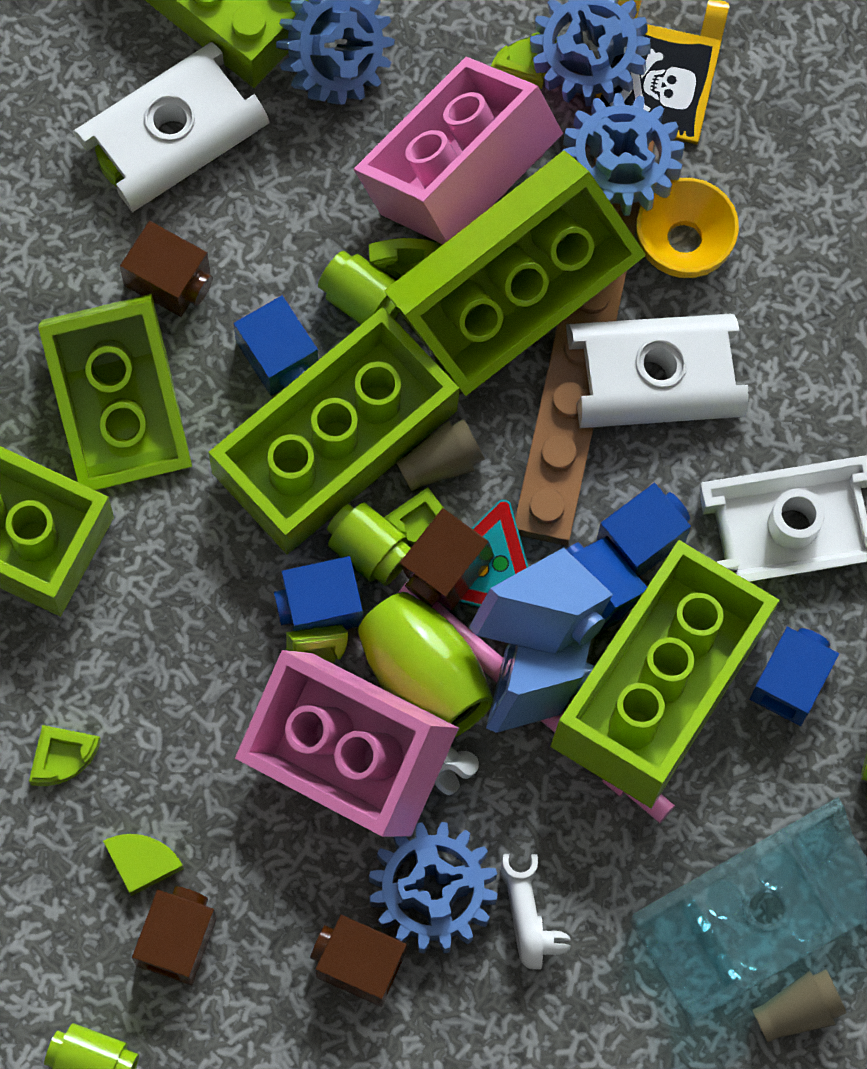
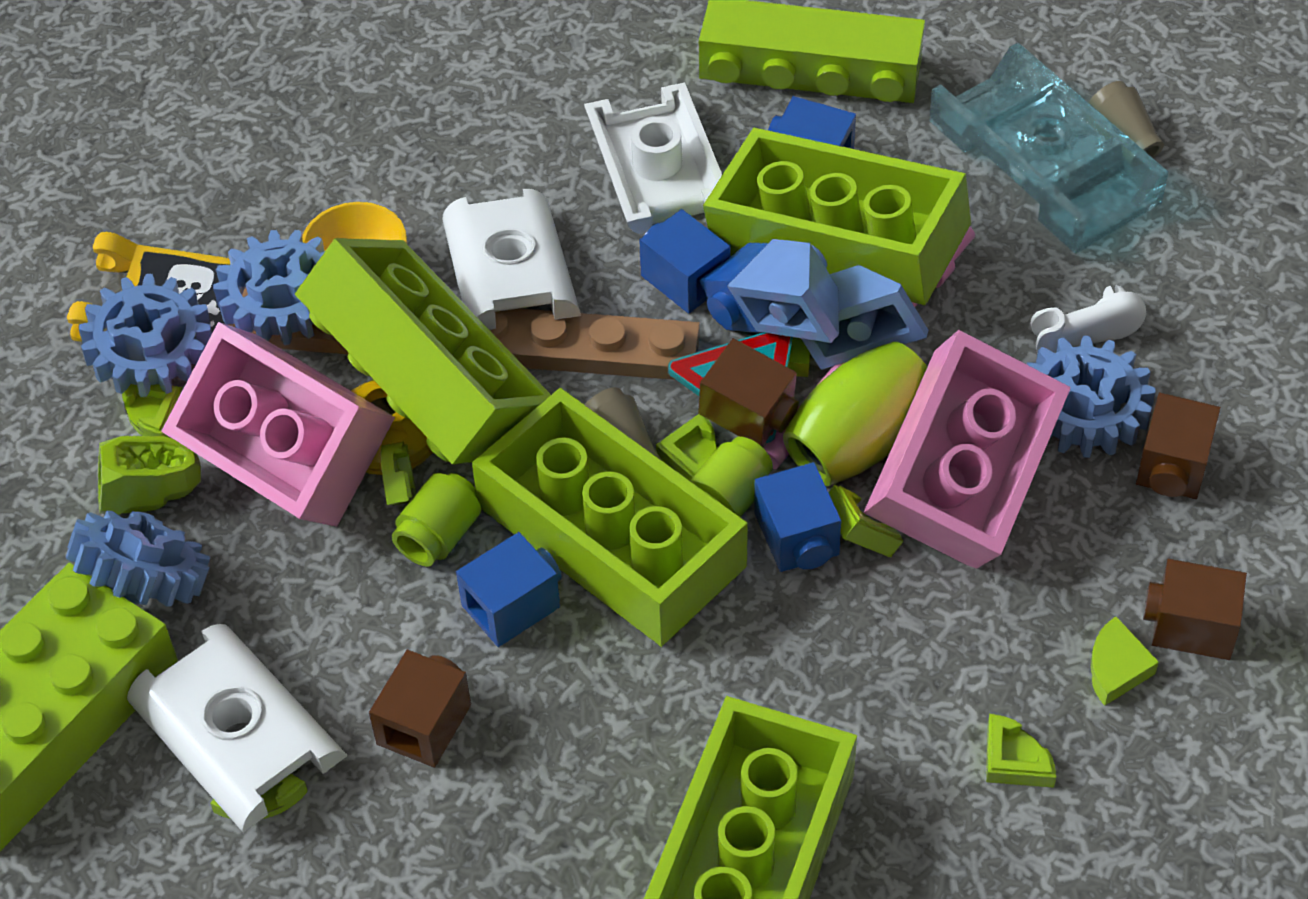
camera: 90 degrees left, 20 degrees down
(115, 393) = (570, 742): lime slope -> none
(435, 43) = (144, 473): none -> lime rock

